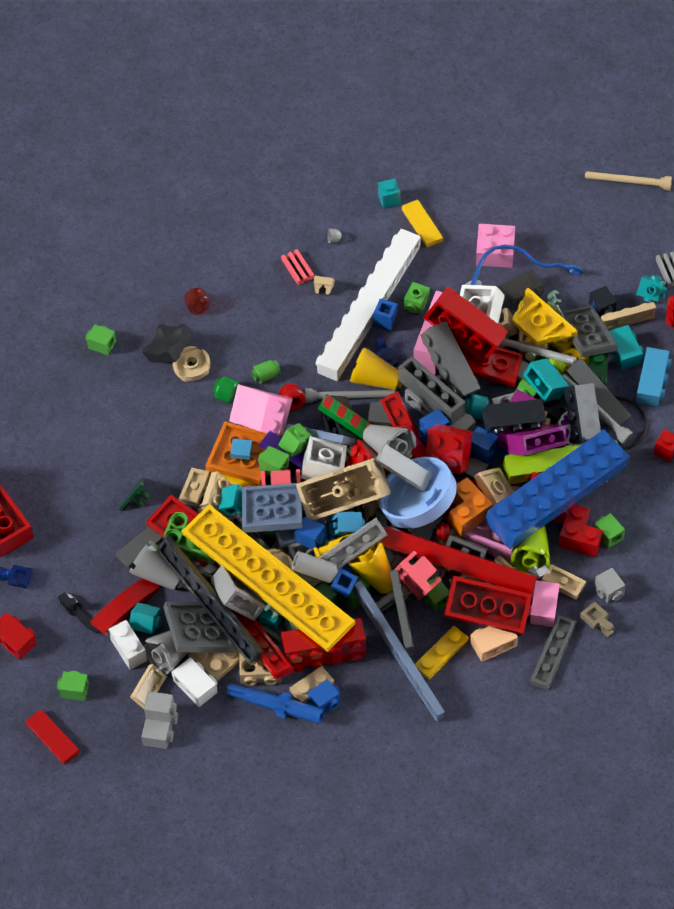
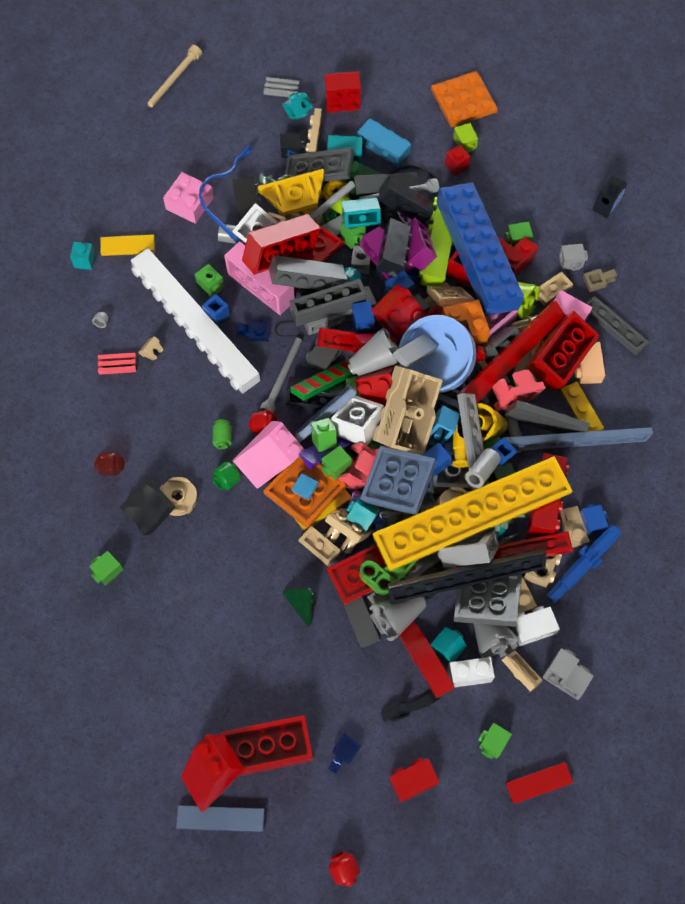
camera: 70 degrees left, 10 degrees up
(374, 372) = (273, 344): yellow cone -> none
(538, 571) = (541, 302): flat silver plate -> none

